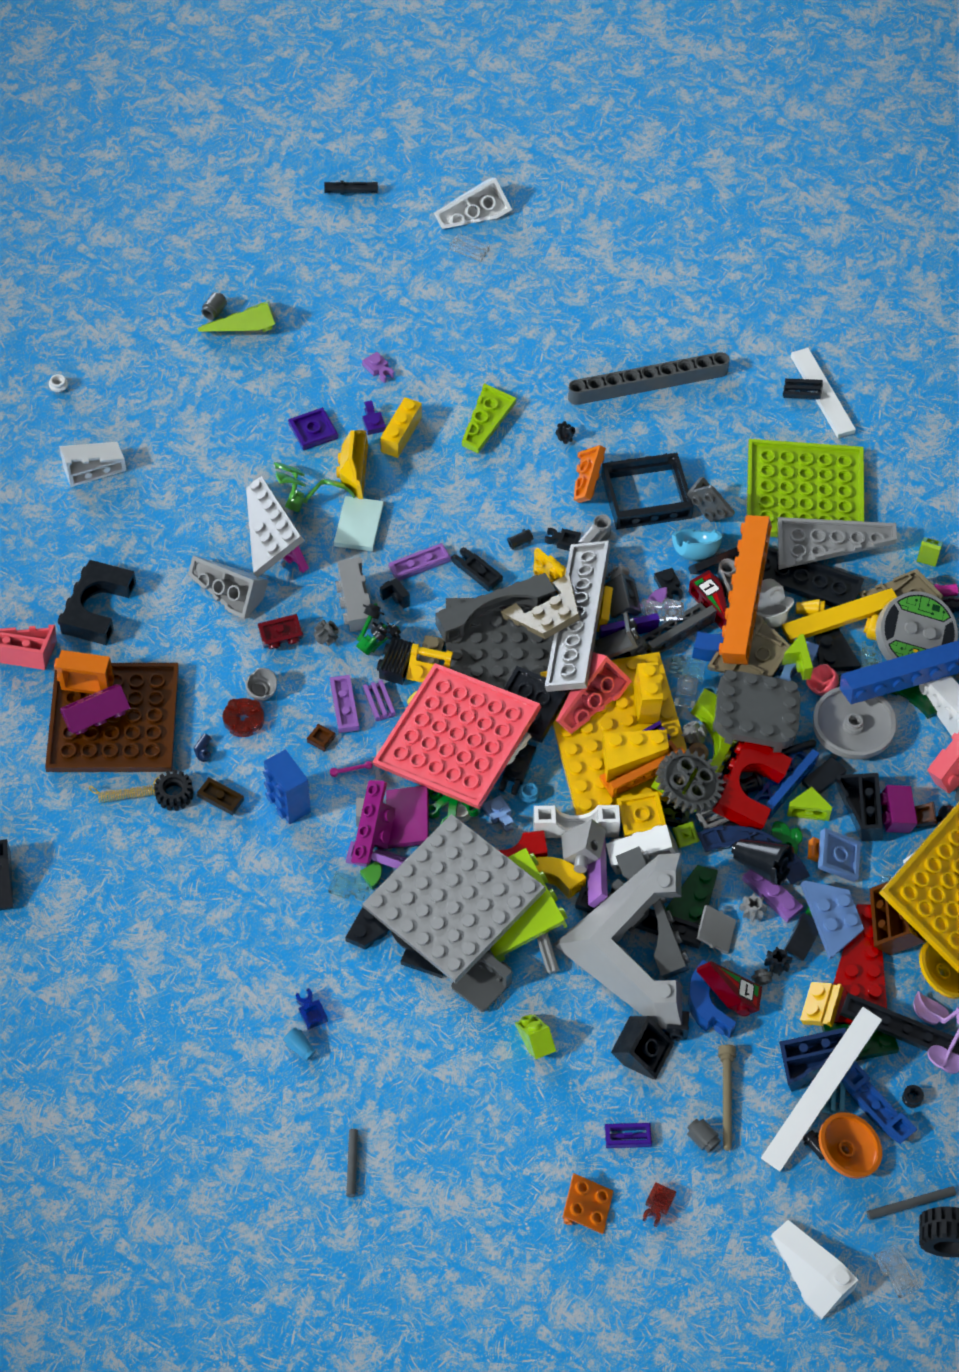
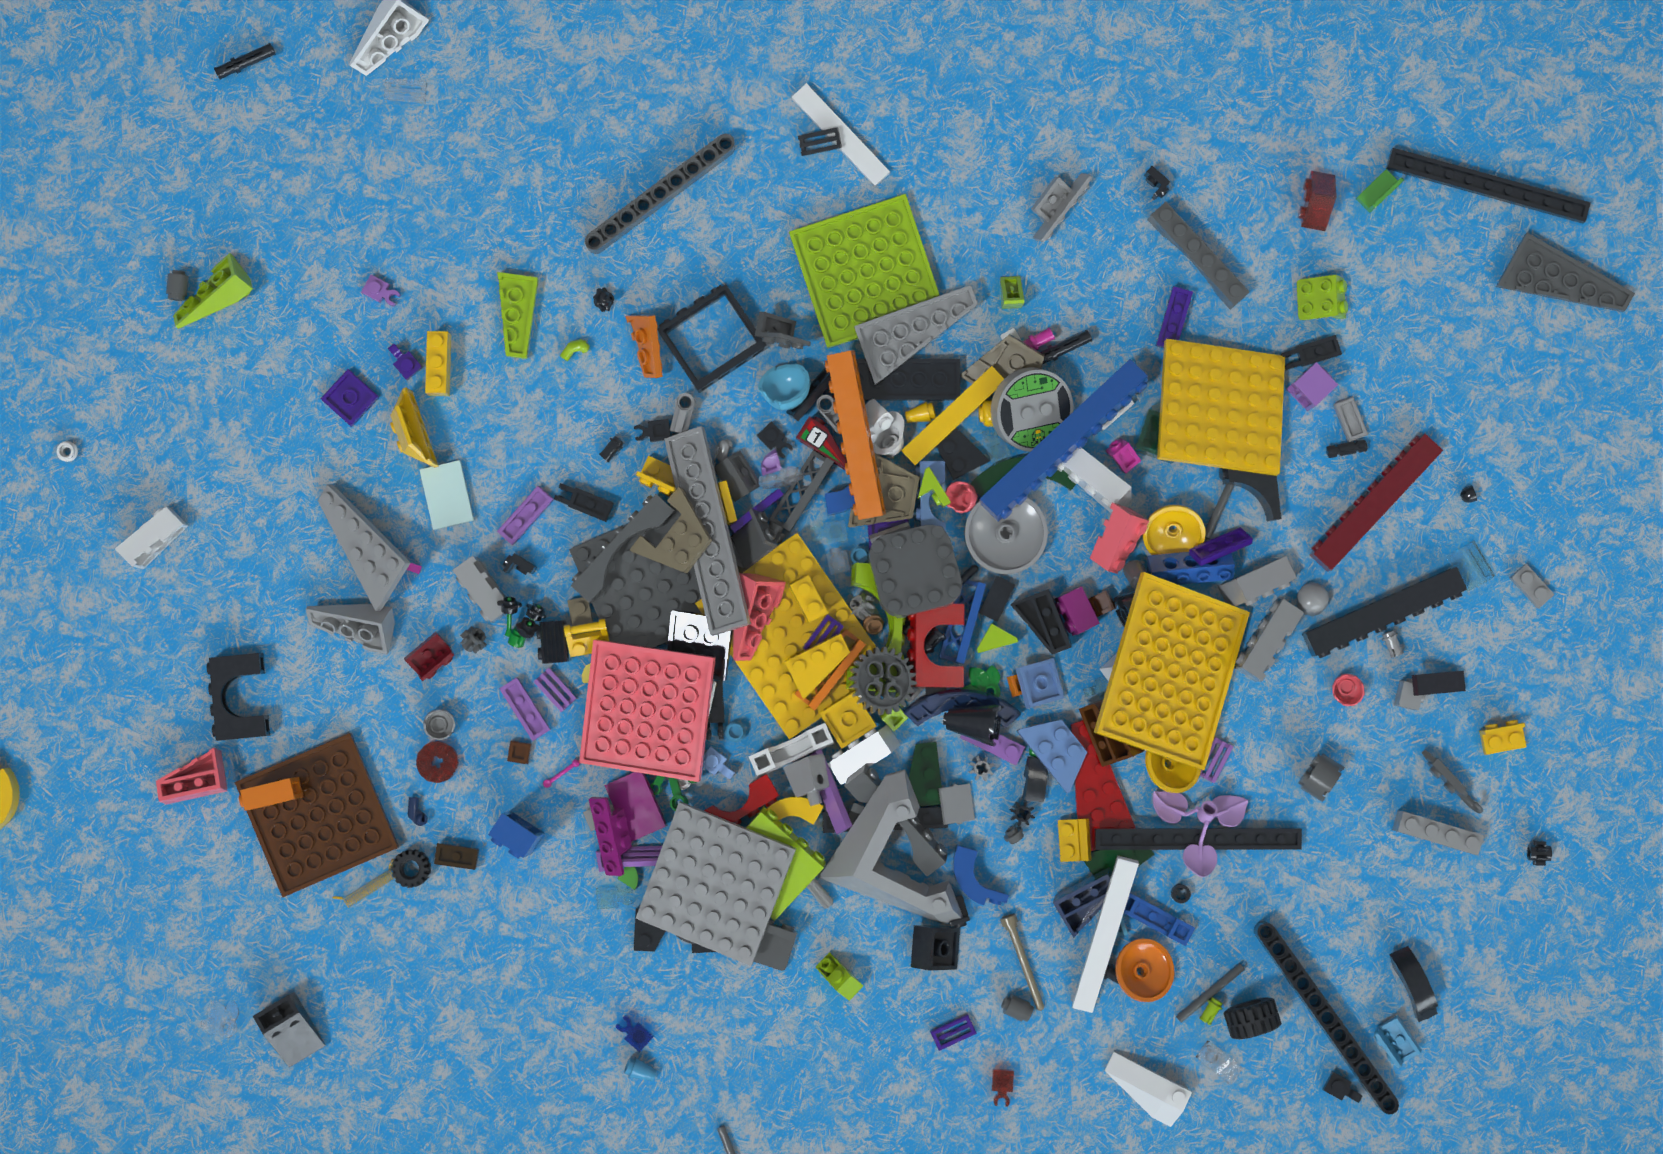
camera: 25 degrees left, 30 degrees up
(95, 709) = (299, 825): magenta brick -> none
(296, 497) = (372, 497): bright green plant -> none
(521, 457) = (574, 346): none -> lime arm
(587, 1204) = (943, 1111): orange hinge -> none
(734, 990) = (996, 866): dark red slope -> none
(907, 1218) = (1211, 1010): none -> lime pin

